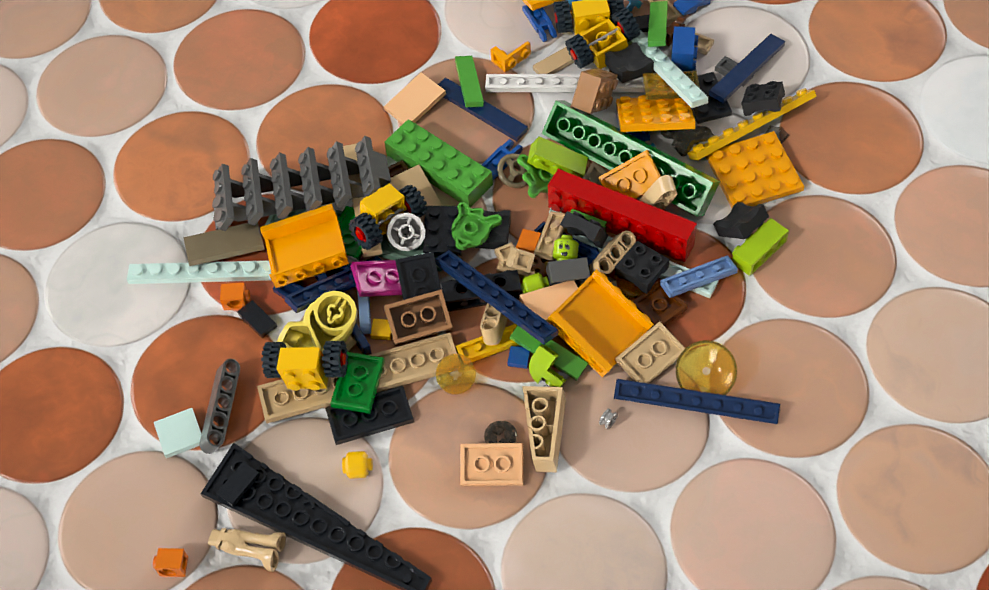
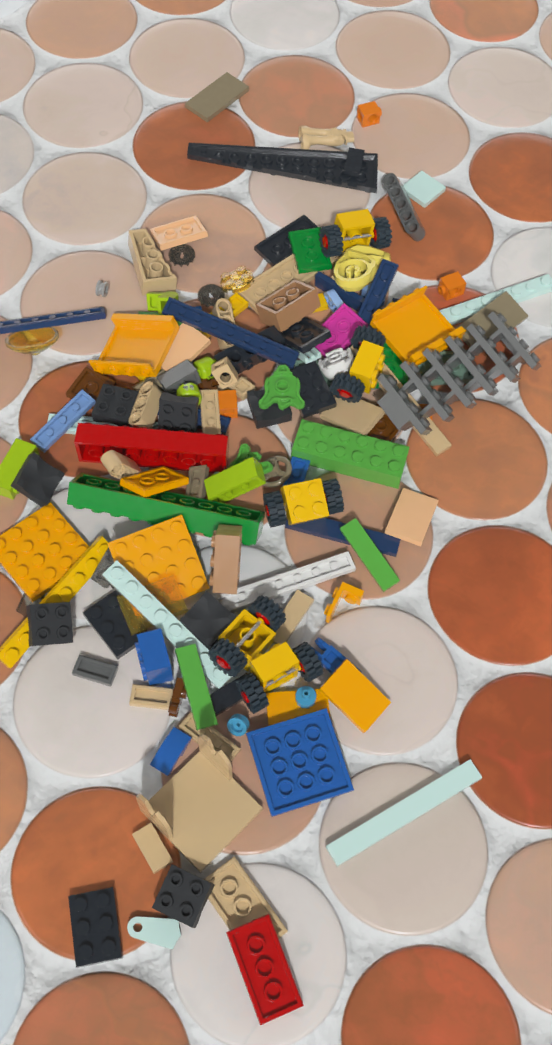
camera: 150 degrees right, 5 degrees up
(257, 319) = (420, 279): black tile -> none
(357, 464) = (278, 203): yellow head -> none
(484, 368) = (214, 290): none -> clear smoke gear
(503, 123) = (303, 502): none -> brick
(650, 354) = (84, 345): tan tile -> none
(746, 68) = (78, 670): dark blue tile -> none

